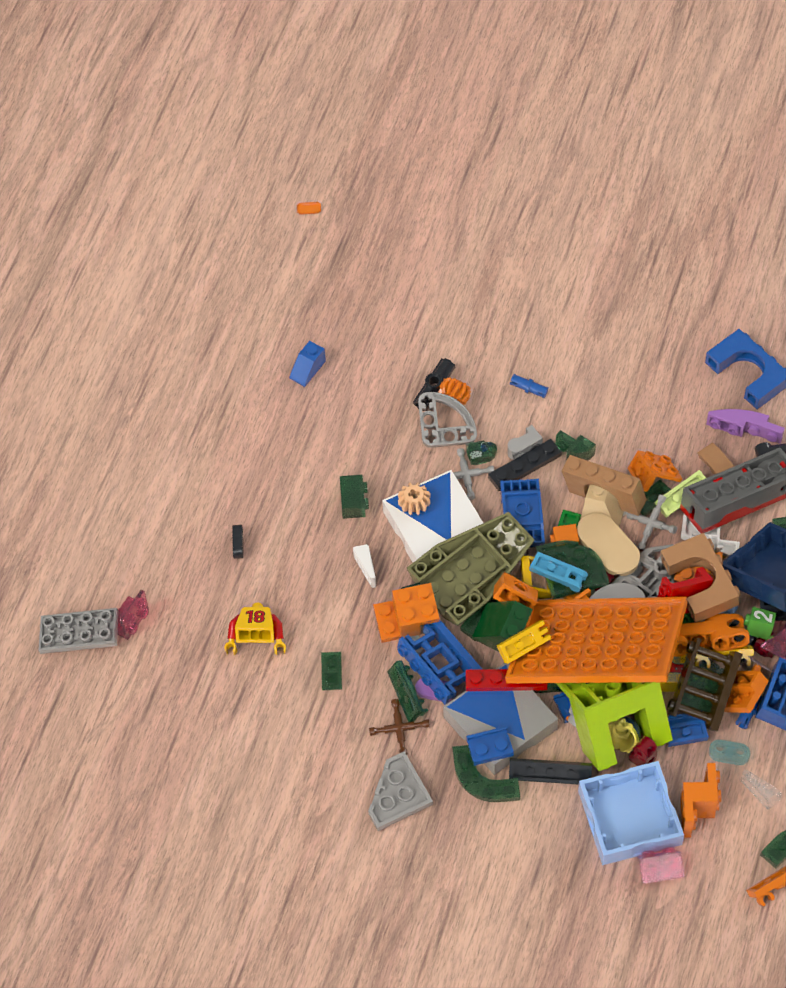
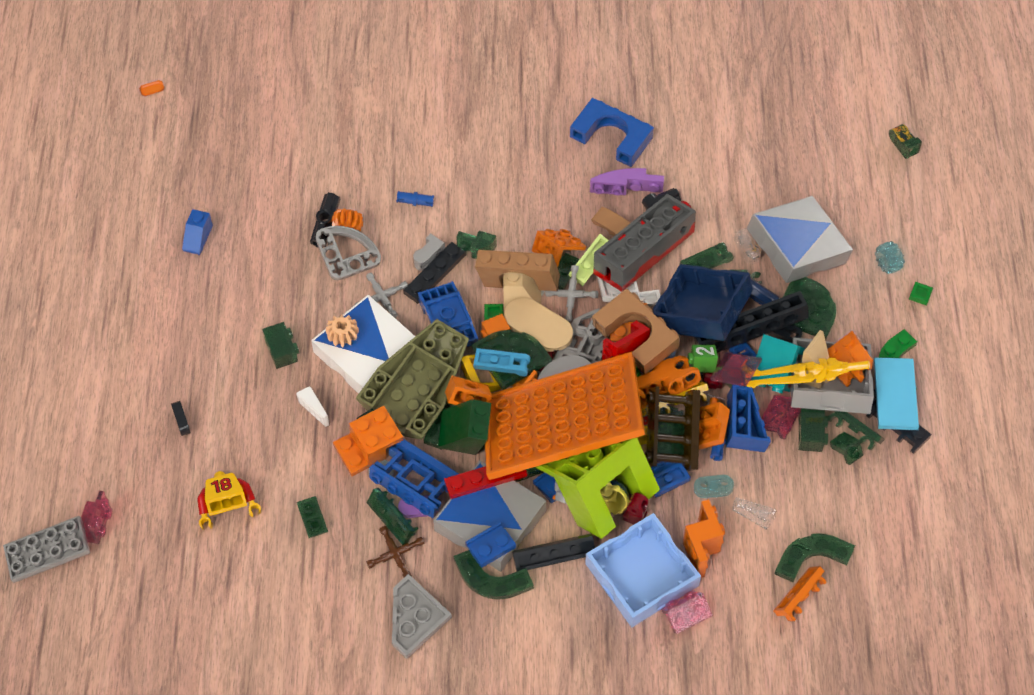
camera: 20 degrees left, 0 degrees up
(481, 452) = (389, 271): clear green rock -> none
(523, 642) = (492, 436): yellow hinge -> none

